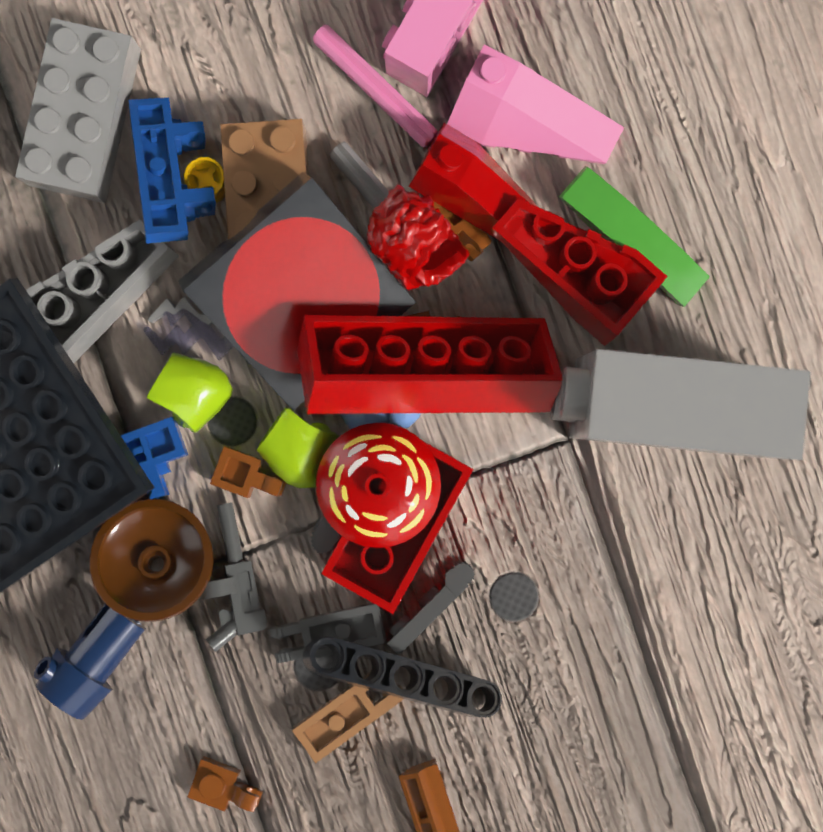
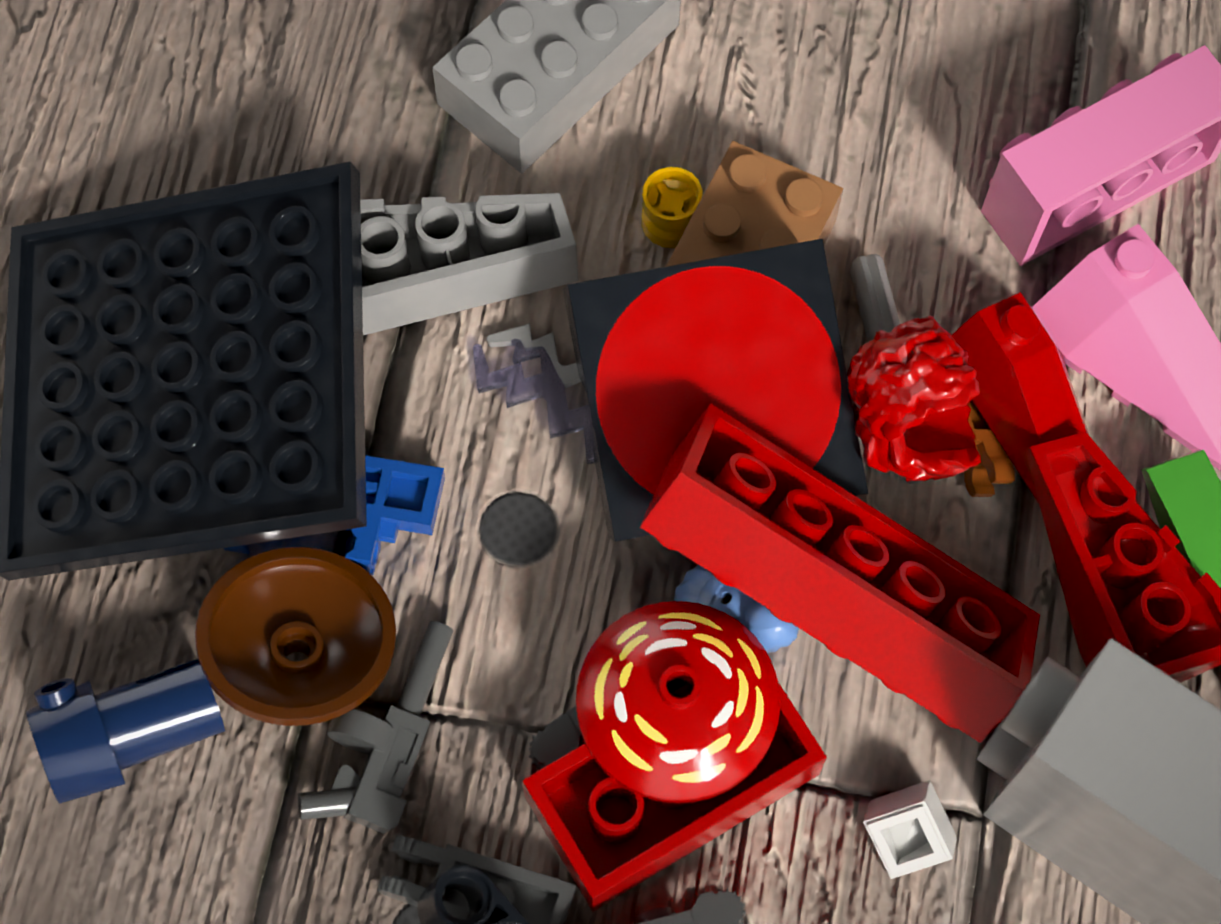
camera: 30 degrees right, 20 degrees down
(163, 198) = (606, 181): blue hinge -> none
(191, 390) = (488, 445): lime piece -> none
(241, 474) = (491, 597): dark orange plate -> none
(295, 448) = (583, 593): lime piece -> none
(374, 85) = (957, 208): bright pink axle -> none
(534, 471) = (910, 829): none -> white slope

